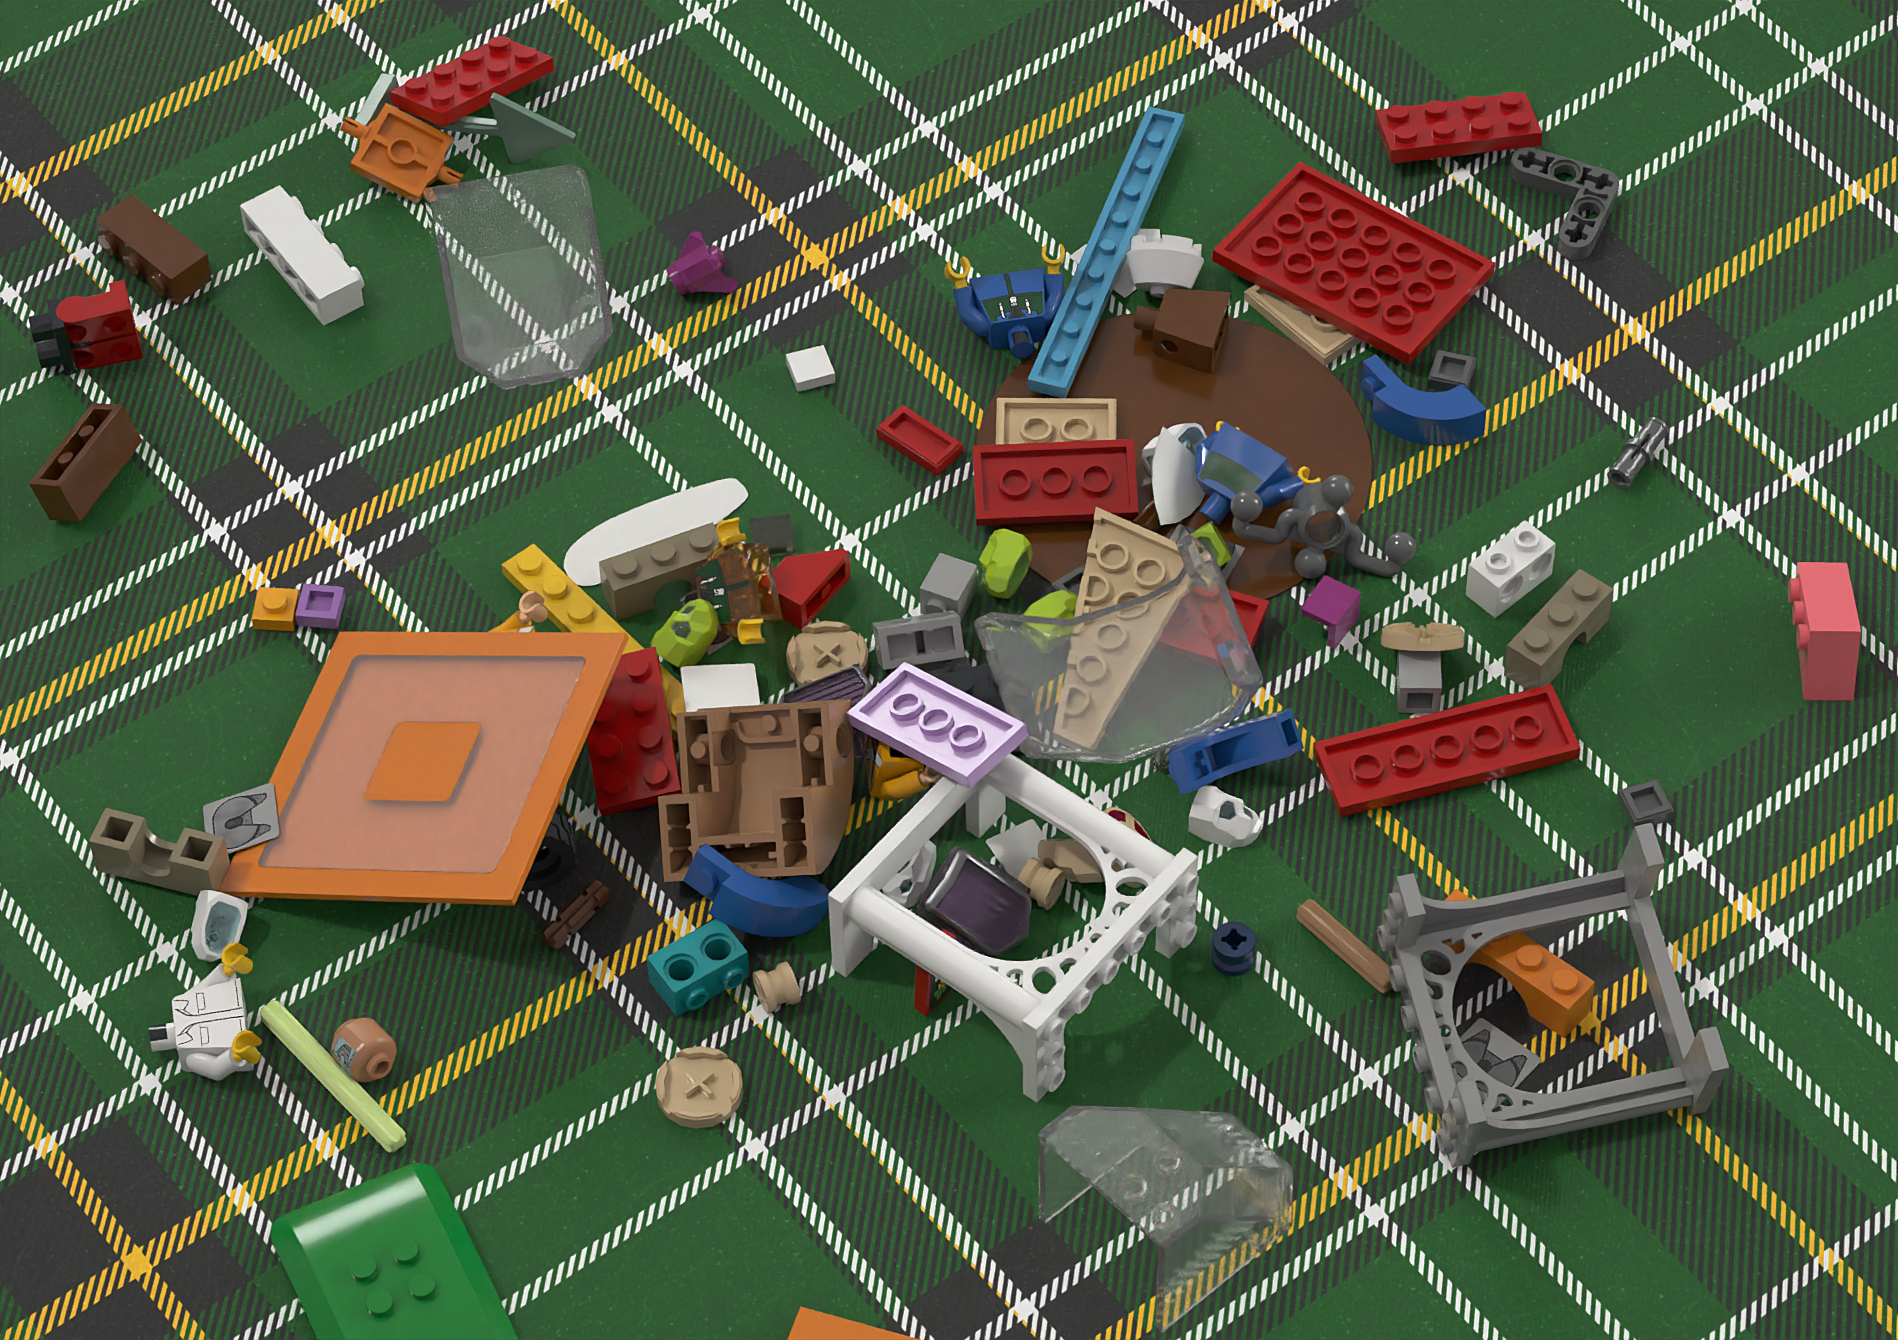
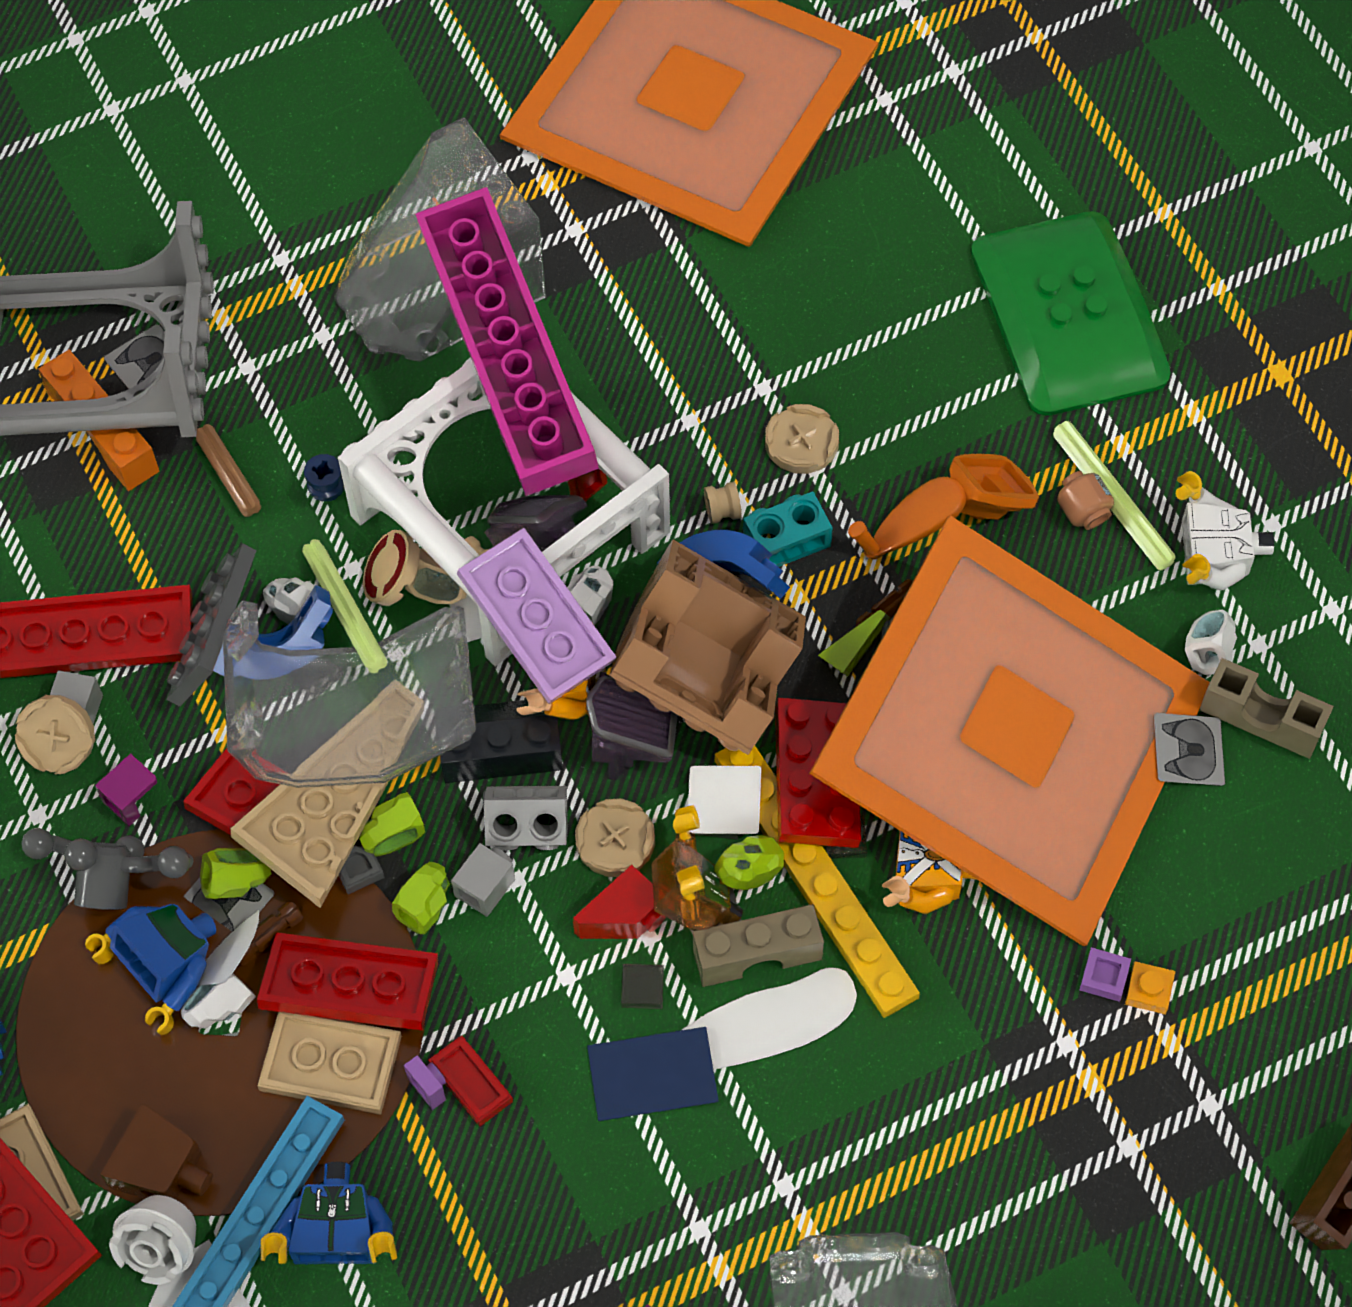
camera: 170 degrees left, 10 degrees up
(479, 1032) = (977, 486): none -> orange piece
(608, 857) = (851, 647): none -> lime piece
(749, 474) = (652, 1073): none -> dark blue sticker
(810, 368) = (564, 1195): white tile -> none
(959, 421) = (426, 1081): none -> medium lavender plate
(1040, 971) = (507, 342): none -> dark pink brick
(1163, 797) = (345, 606): none -> yellowish green axle
(1293, 740) = (210, 617): none -> dark grey plate

